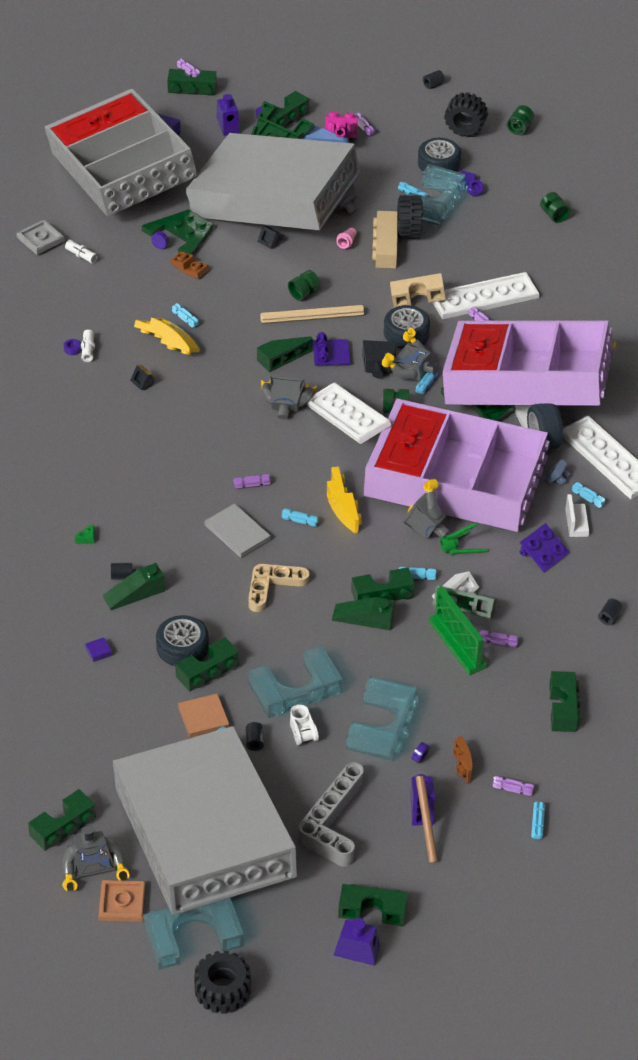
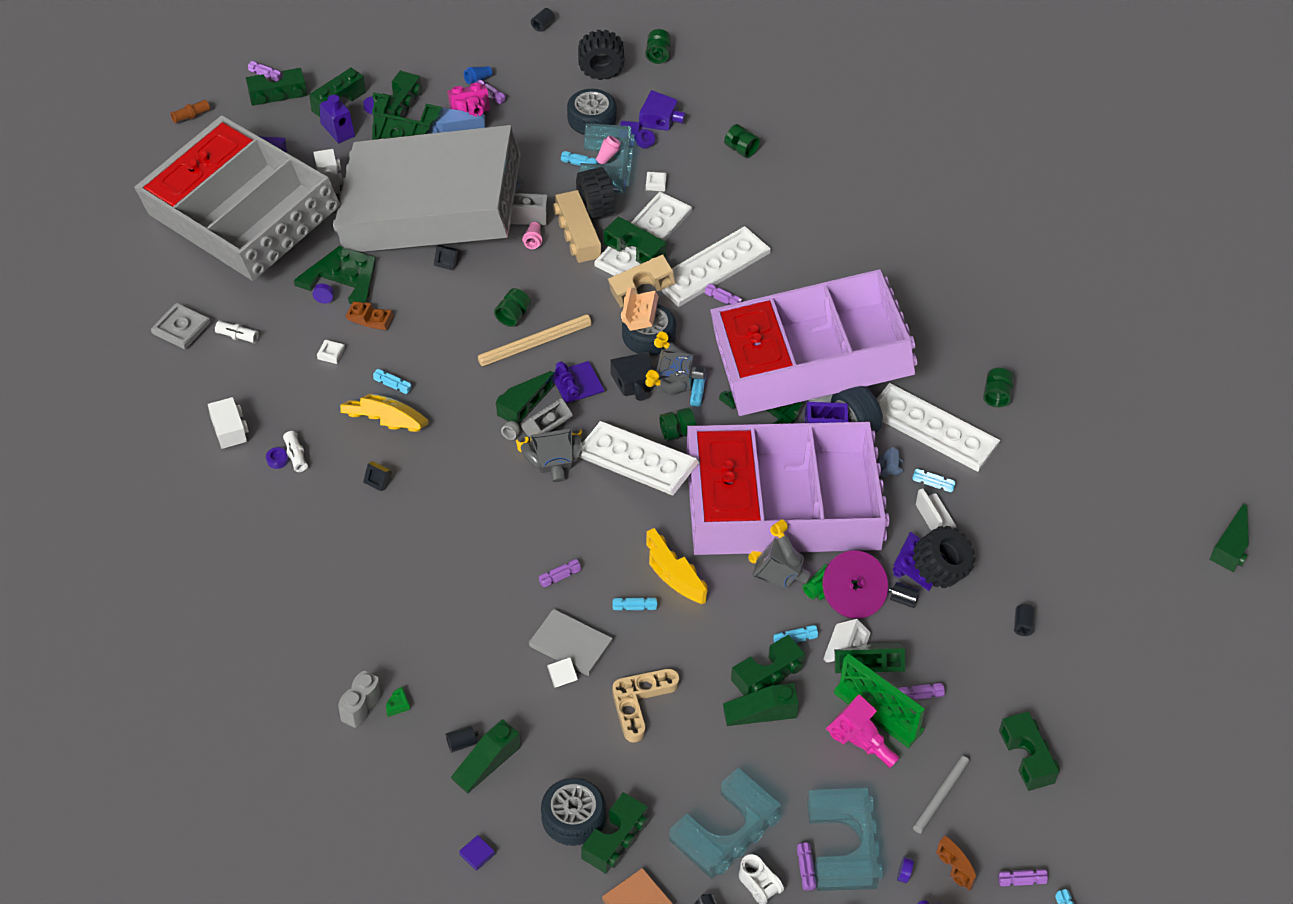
camera: 20 degrees left, 5 degrees up
(44, 312) = (227, 422): none -> white brick
(57, 523) = (359, 699): none -> light grey brick
(116, 85) = (190, 111): none -> dark orange pin
(147, 283) = (331, 351): none -> white tile
(201, 149) = (329, 166): none -> white brick
(220, 547) = (562, 672): none -> white tile
(250, 92) = (347, 84): none -> dark green arch
(261, 372) = (510, 430): none -> light grey hinge
(293, 368) = (547, 419): none -> light grey brick
(344, 728) = (806, 866): none -> medium lavender axle
(350, 215) = (529, 209): none -> light grey brick
(359, 107) = (473, 74): none -> blue cone
(400, 307) = (639, 309): none -> light nougat bracket
(419, 252) = (625, 234): none -> dark green arch
(427, 643) = (855, 725): none -> dark pink brick
(438, 186) = (608, 149): none -> bright pink cone
(441, 257) = (658, 218): none -> white tile
(469, 222) = (656, 181): none -> white tile
(478, 712) = (941, 794): none -> light grey bar
(481, 563) = (839, 590): none -> magenta piece
(496, 170) = (660, 112): none -> dark purple torso
(515, 416) = (826, 412): none -> dark purple torso
(520, 568) = (904, 594): none -> black piece
(554, 556) = (955, 549): none -> black tyre

